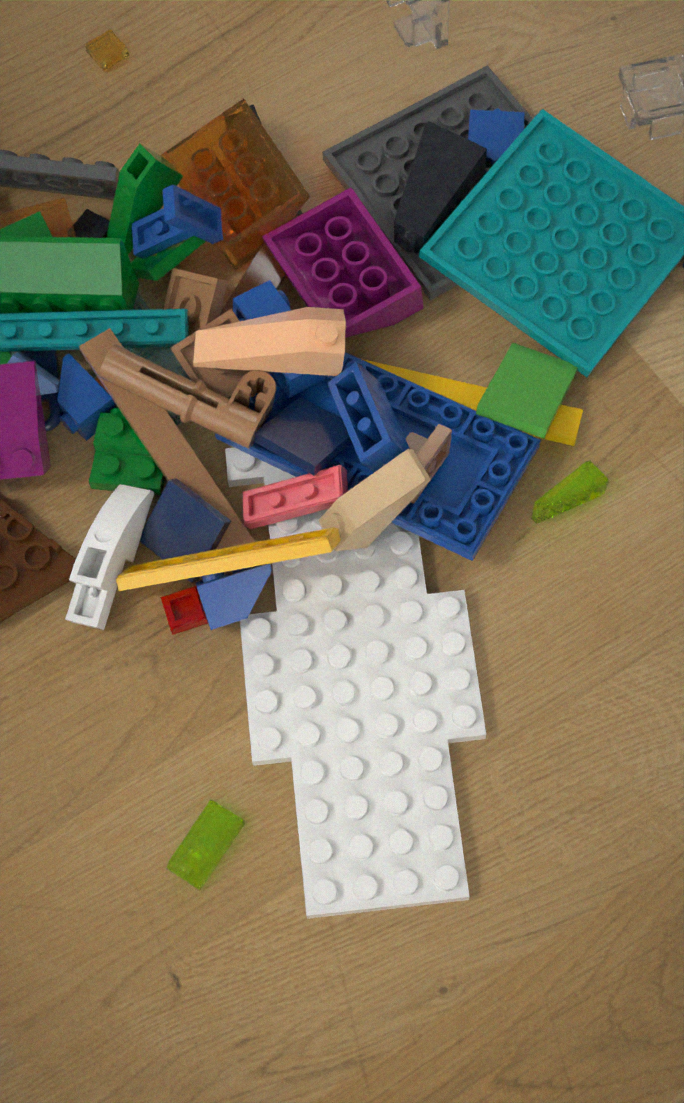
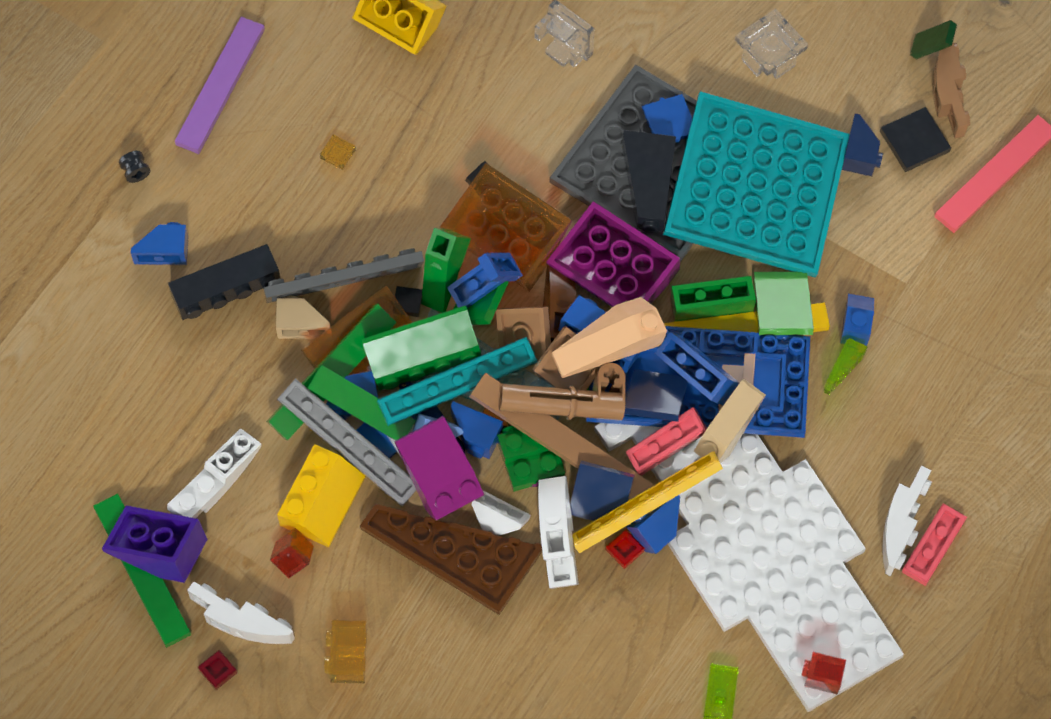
camera: 30 degrees left, 0 degrees up
(54, 507) = (498, 515): none -> white slope
(342, 876) = (823, 672): none -> clear red brick
(441, 351) = (712, 298): none -> green brick
(543, 725) = (900, 521): none -> white slope
(582, 767) = (934, 544): none -> coral tile
(615, 444) = (858, 319): none -> blue slope

